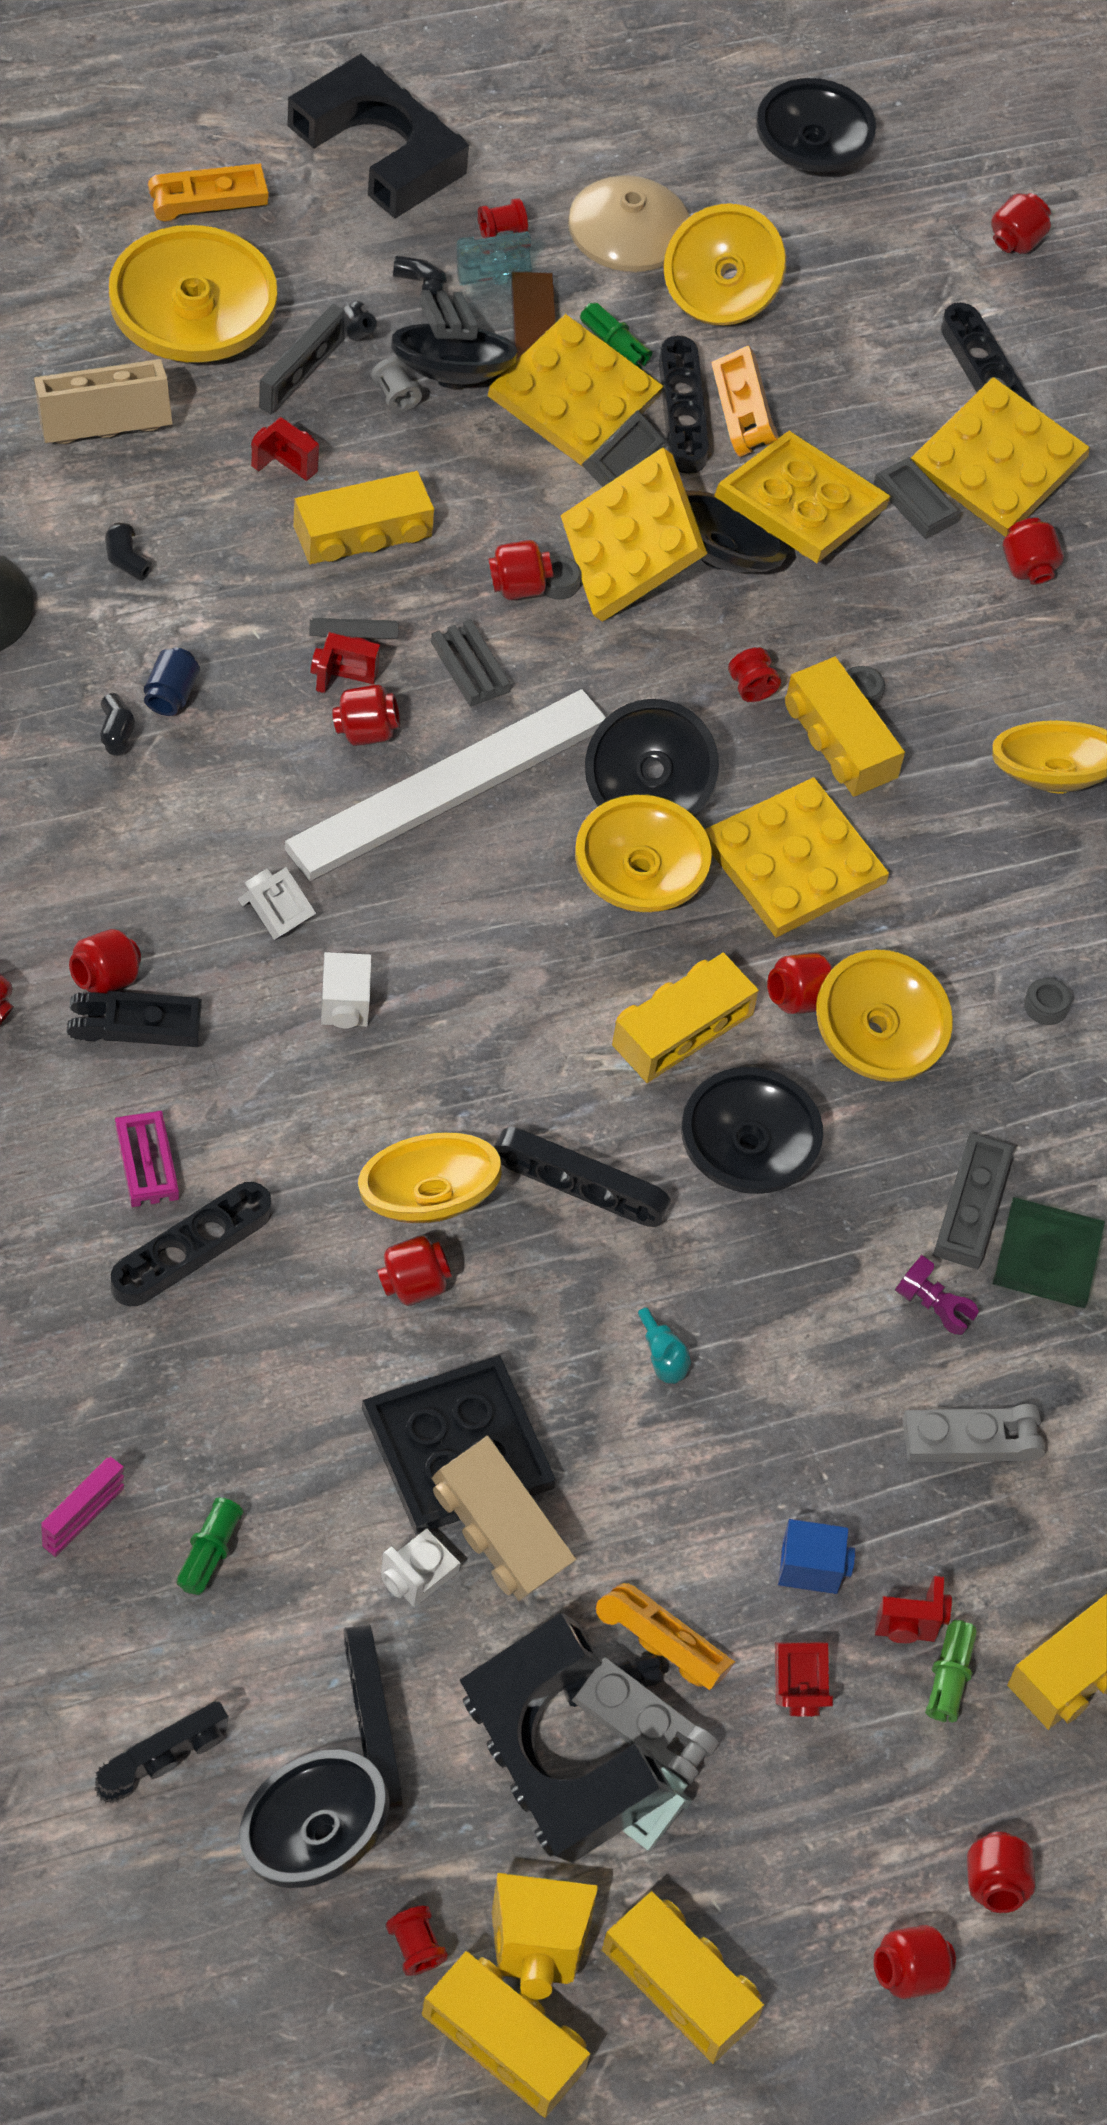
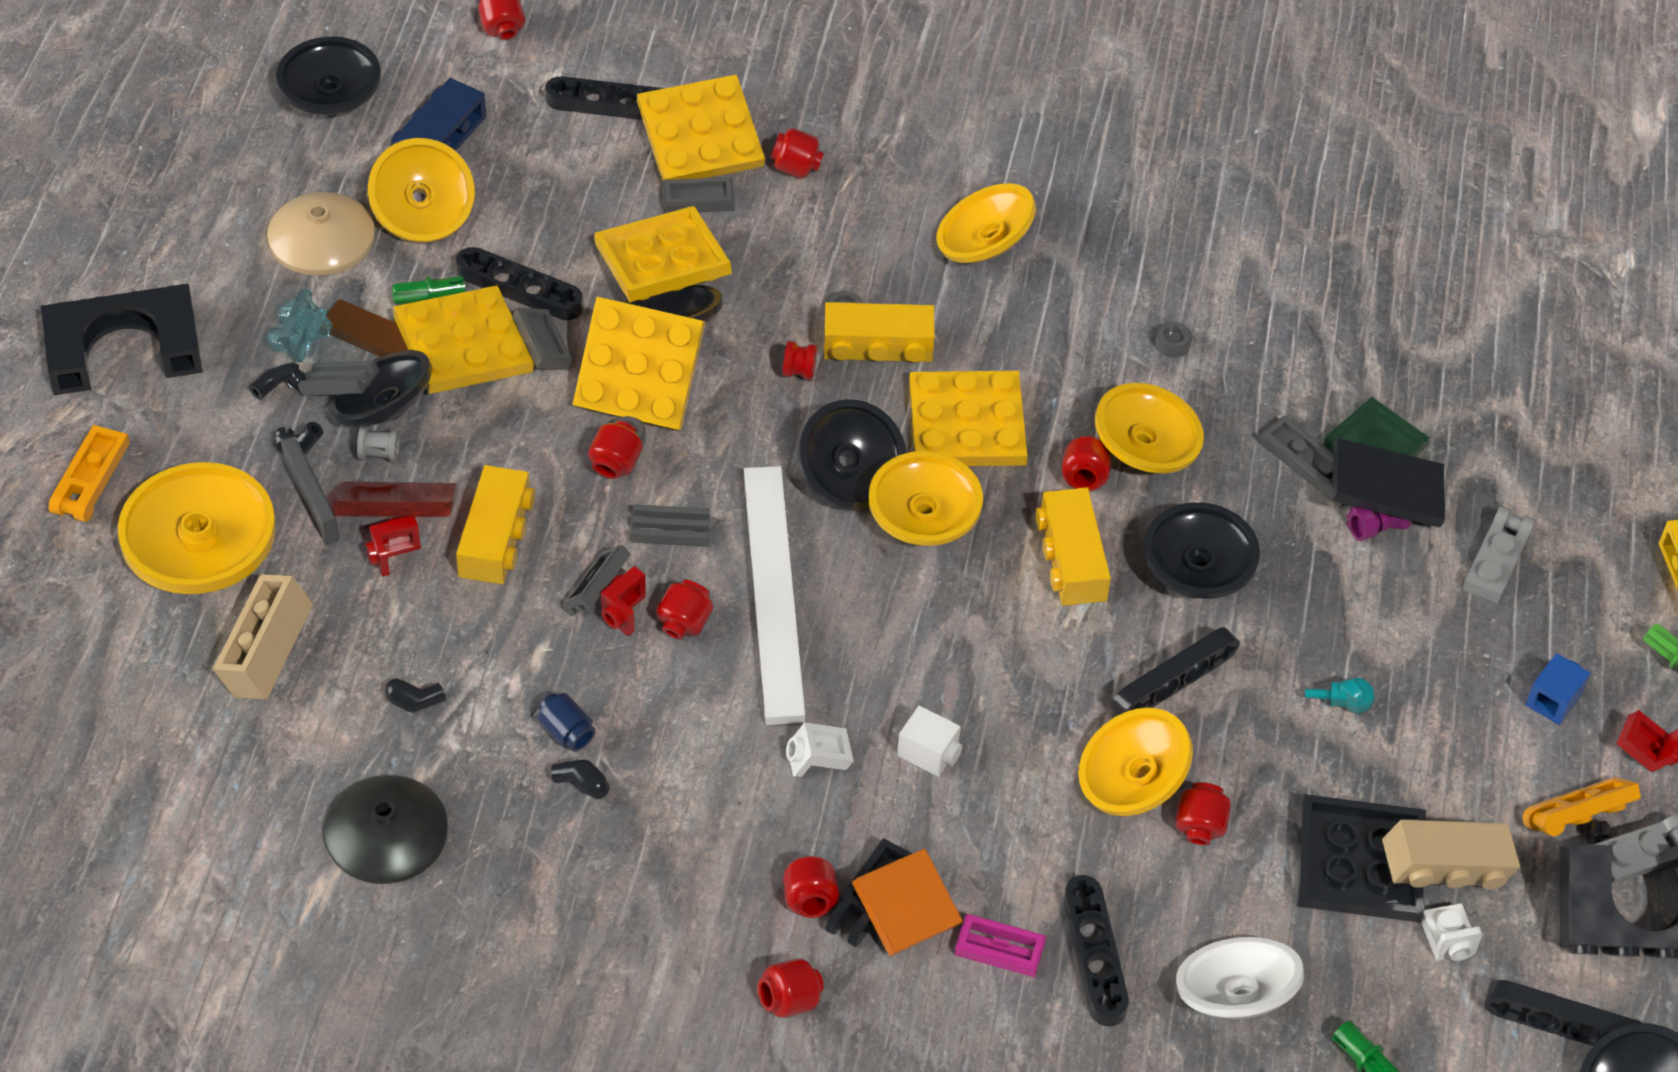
camera: 55 degrees left, 5 degrees down
(135, 1049) = (907, 902): none -> orange tile
(220, 1376) = (1240, 977): none -> white dish
(333, 425) = (395, 499): none -> clear red tile
(502, 218) = (268, 298): red bush -> none
(744, 400) = (547, 244): light orange plate -> none
(834, 245) = (447, 116): none -> dark blue brick
(912, 1619) = (1633, 645): red bracket -> none
(980, 1277) = (1388, 482): none -> black tile

